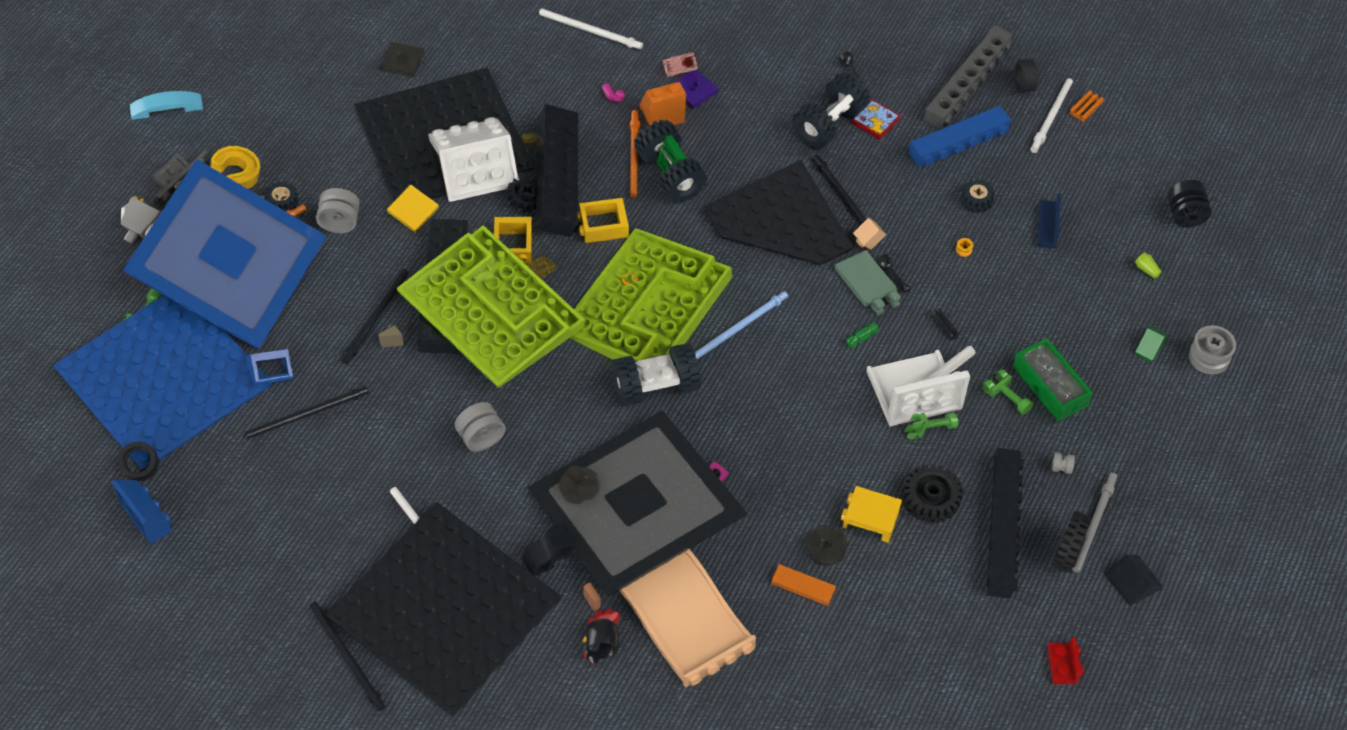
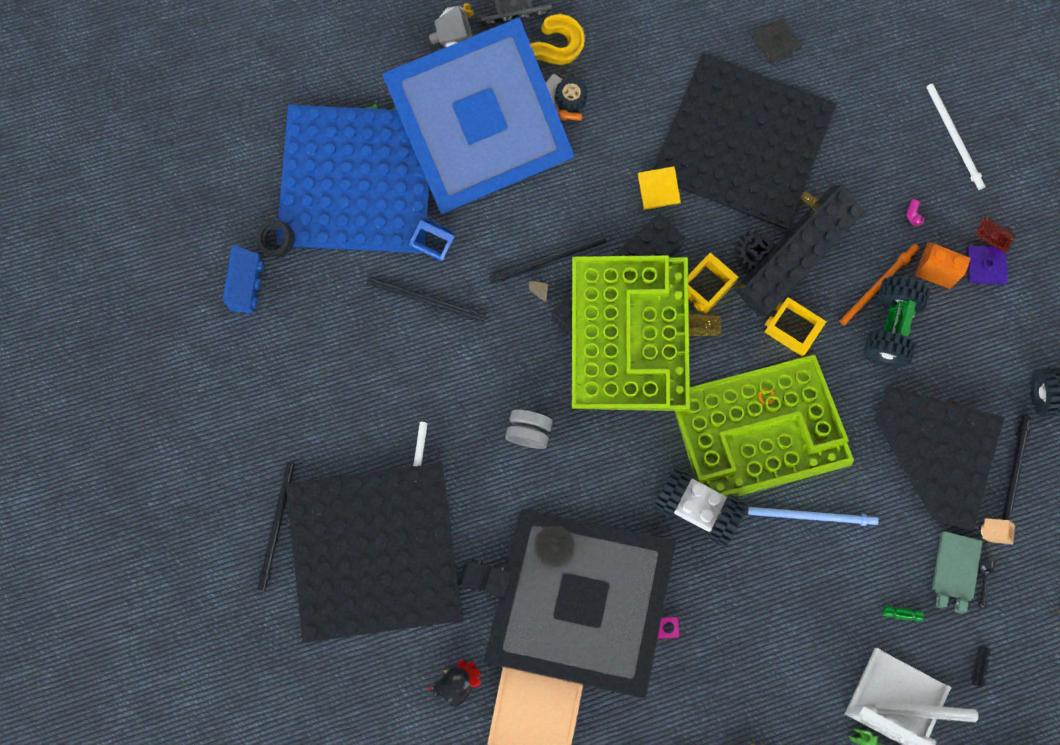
camera: 45 degrees right, 20 degrees up
(337, 210) = (598, 144): light grey wheel -> none
(475, 158) = (745, 182): white bracket -> none
(592, 596) = (480, 646): nougat tile -> none

